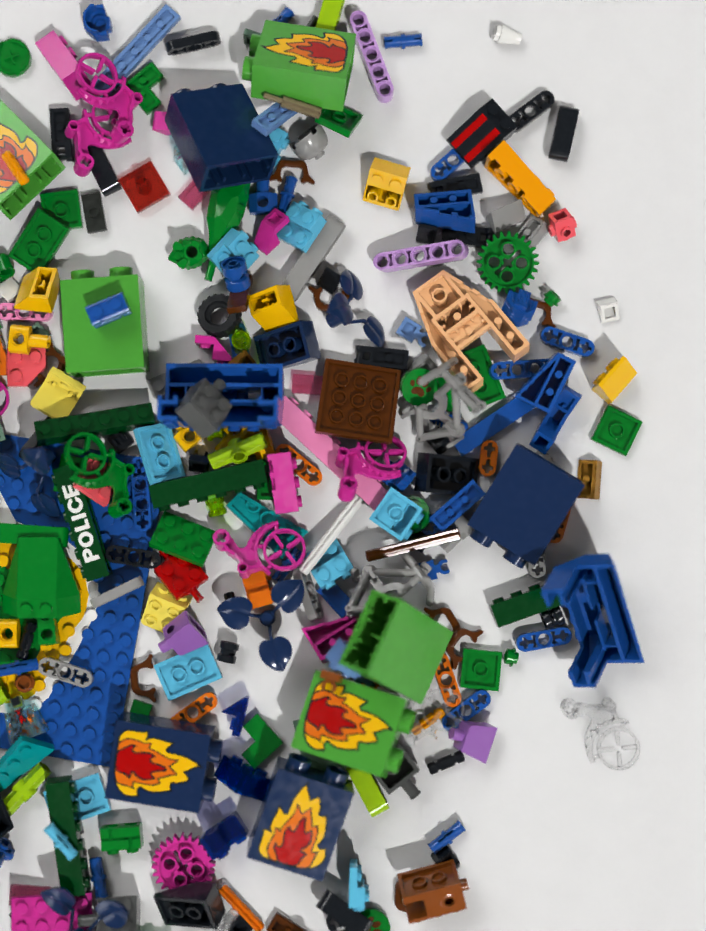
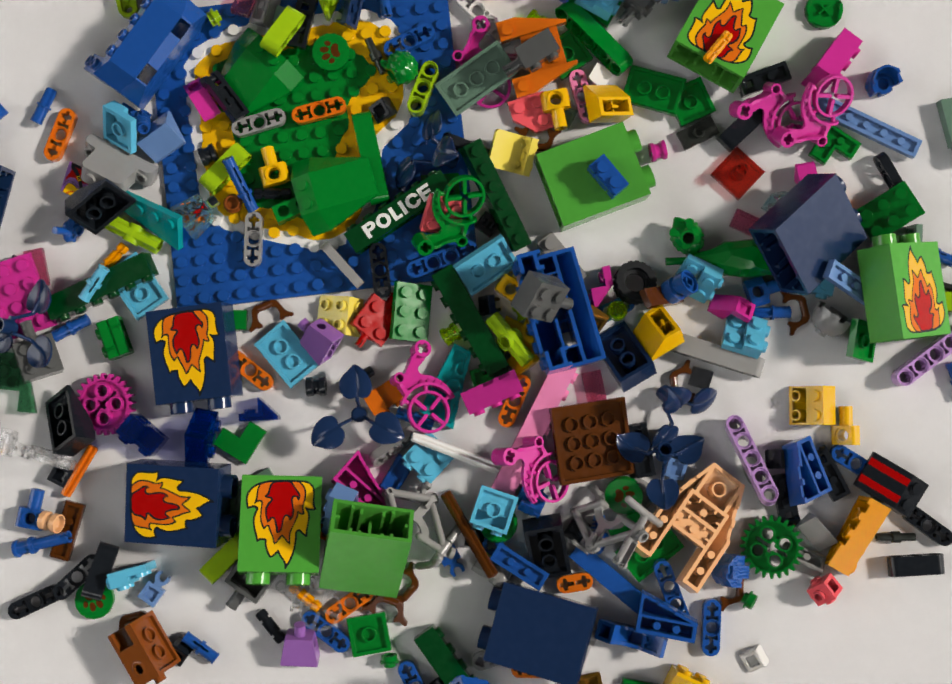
camera: 75 degrees right, 0 degrees up
(40, 813) = (115, 255): none -> light orange axle
(99, 256) = (657, 151): none -> dark pink wheel
(223, 54) = (890, 211): none -> green plate
(295, 105) = (861, 296): dark tan axle -> none
(331, 677) = (318, 494): dark orange tile -> none
(379, 868) = (153, 591): none -> medium blue plate
(394, 314) = (687, 448): none -> dark blue plant
(413, 158) = (845, 424): none -> yellow piece
(532, 144) = (895, 537): none -> pearl dark grey bar

